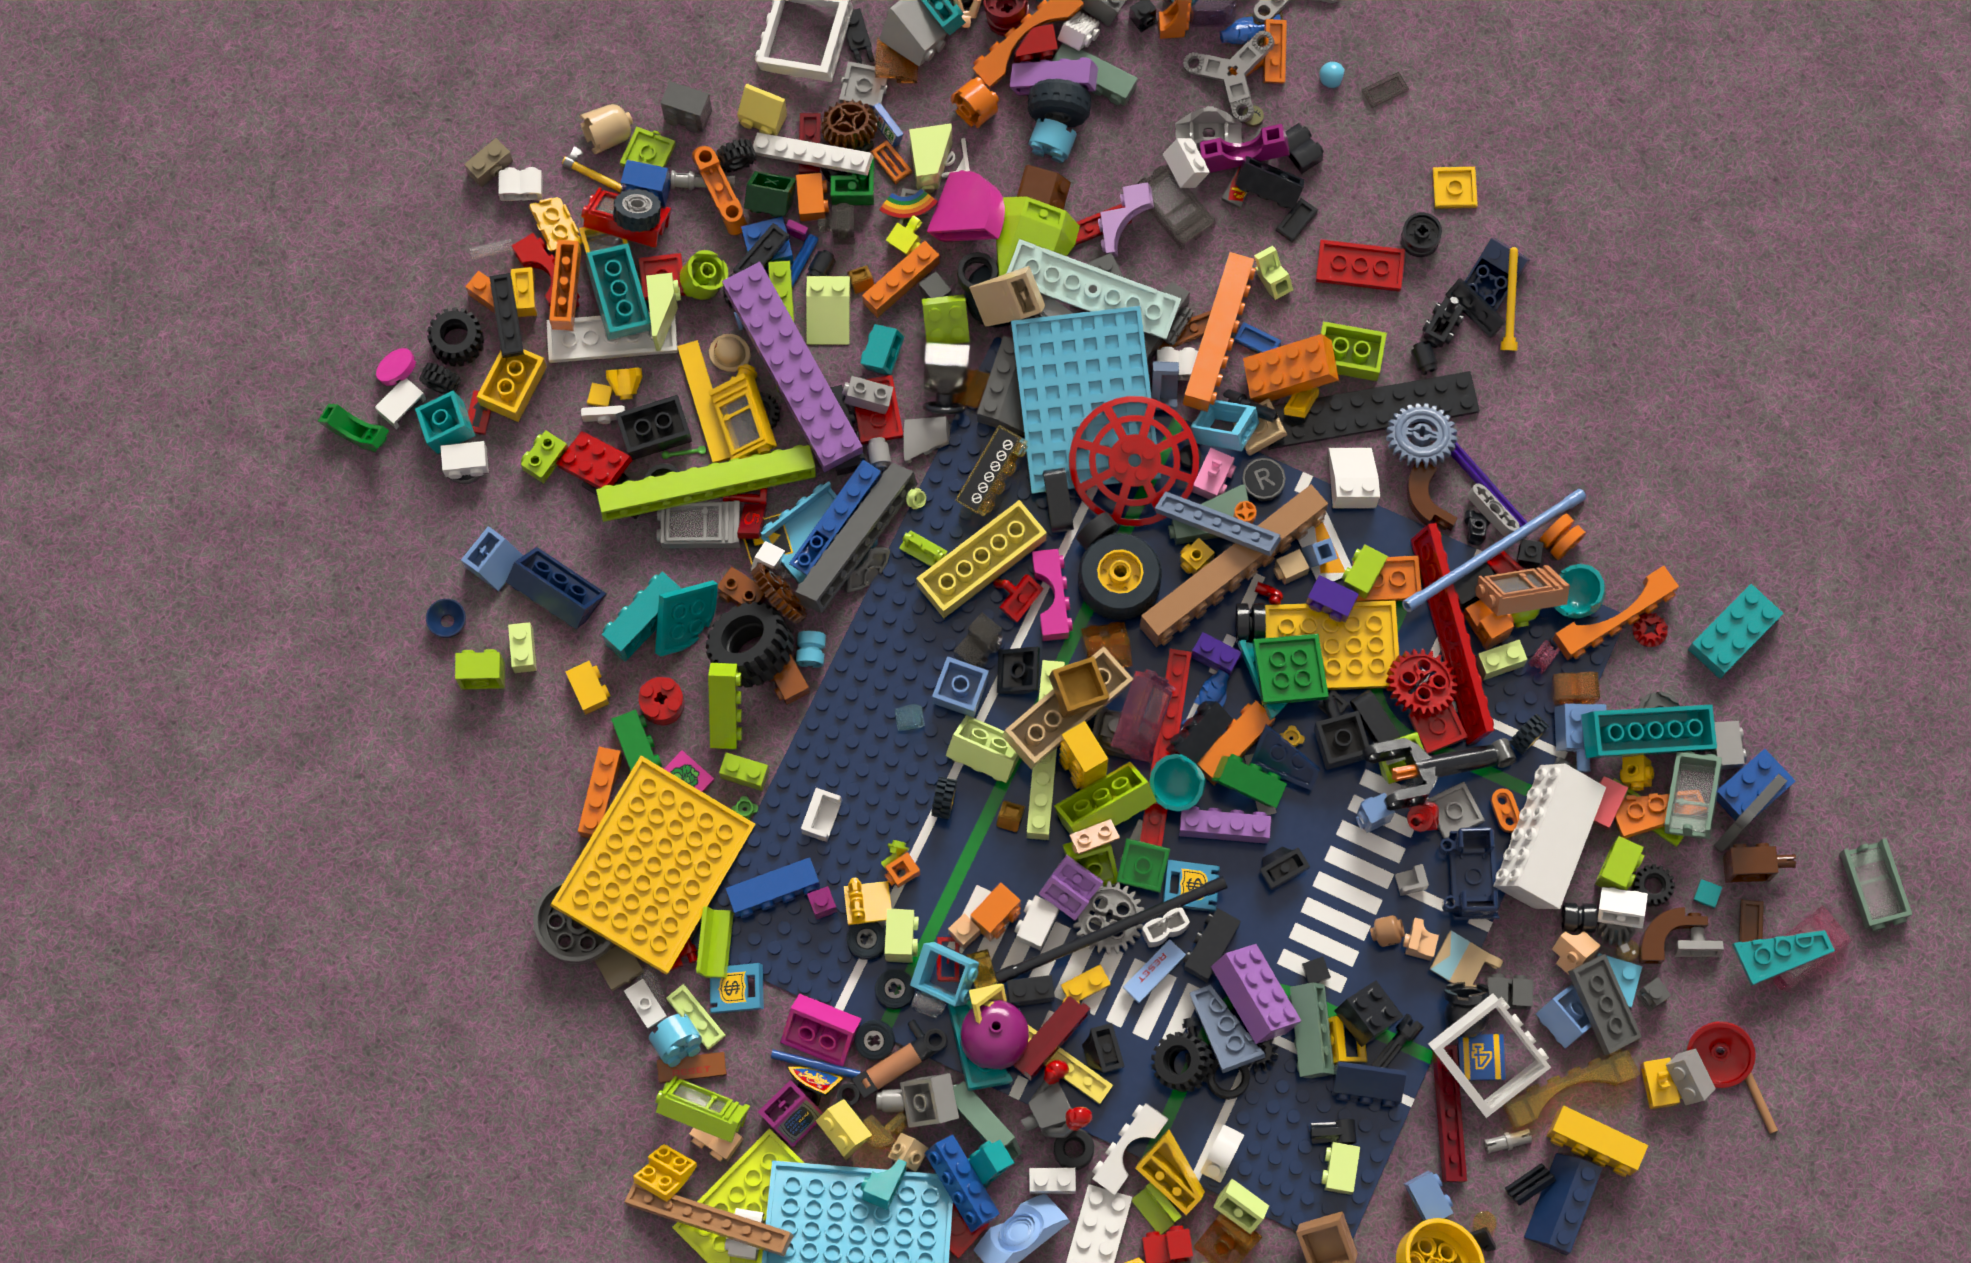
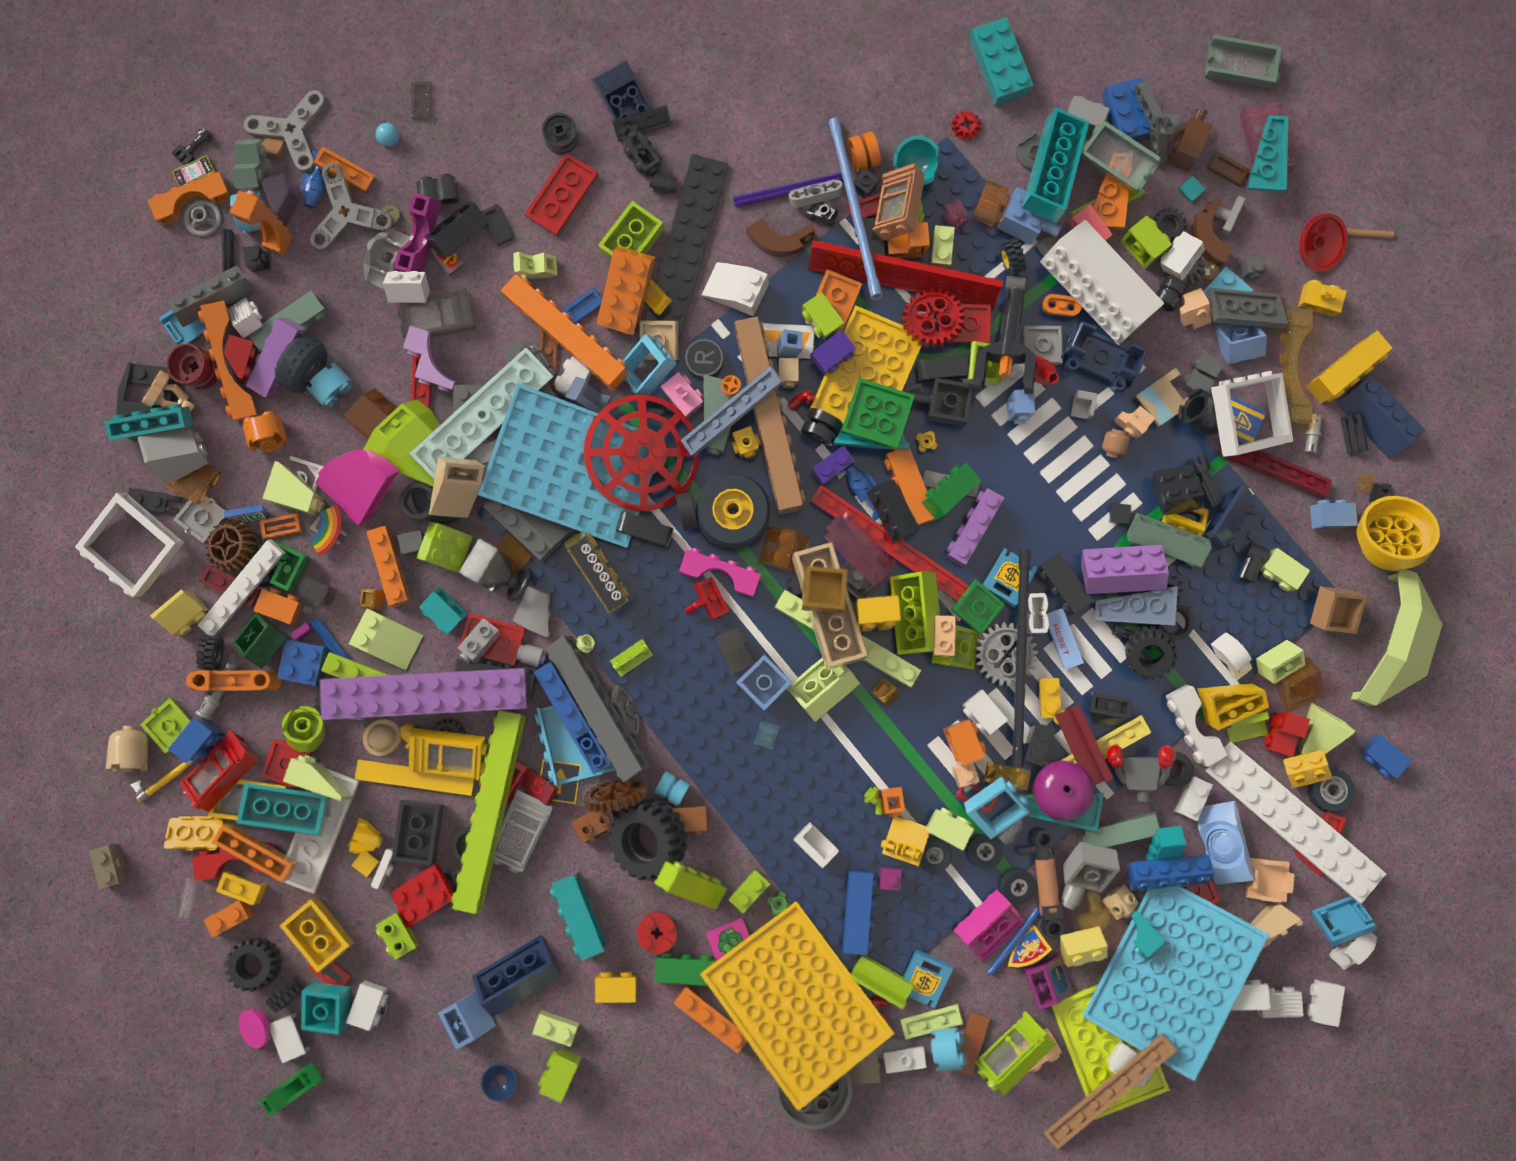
camera: 70 degrees left, 10 degrees up
(506, 315) = (256, 914): black tile -> none
(520, 185) = (142, 847): white brick -> none
(637, 210) = (218, 761): black wheel -> none
(665, 1172) = (1050, 1105): yellow slope -> none
(684, 616) = (596, 882): teal plate -> none
(686, 107) = (144, 675): dark grey brick -> none
(701, 450) = (455, 799): bright green hinge -> none
(764, 248) = (308, 670): black tile -> none
(769, 556) = (578, 788): white panel -> none
(821, 264) = (343, 626): black brick -> none
(904, 238) = (354, 547): neon yellow brick -> none
(944, 798) = (850, 739): black wheel -> none
(981, 559) = (664, 614): light yellow brick -> none
(981, 996) = (1034, 788): light yellow slope -> none
(1018, 670) = (770, 629): black slope -> none
(1070, 887) = (973, 673): medium lavender slope -> none
(1177, 782) = (929, 548): teal cylinder -> none
(1262, 411) = (629, 343): black piece -> none
(1282, 758) = (943, 456): dark blue wing -> none
(1283, 866) = (1026, 498): black slope -> none
(1419, 446) = (730, 216): sand blue gear -> none
(1454, 187) = (532, 88): yellow tile -> none
(1509, 341) = (683, 111): yellow piece -> none
(1576, 638) = (939, 102): orange arch -> none
(1637, 772) = (1083, 186): yellow brick -> none
(1690, 1077) = (1331, 273): light grey brick -> none

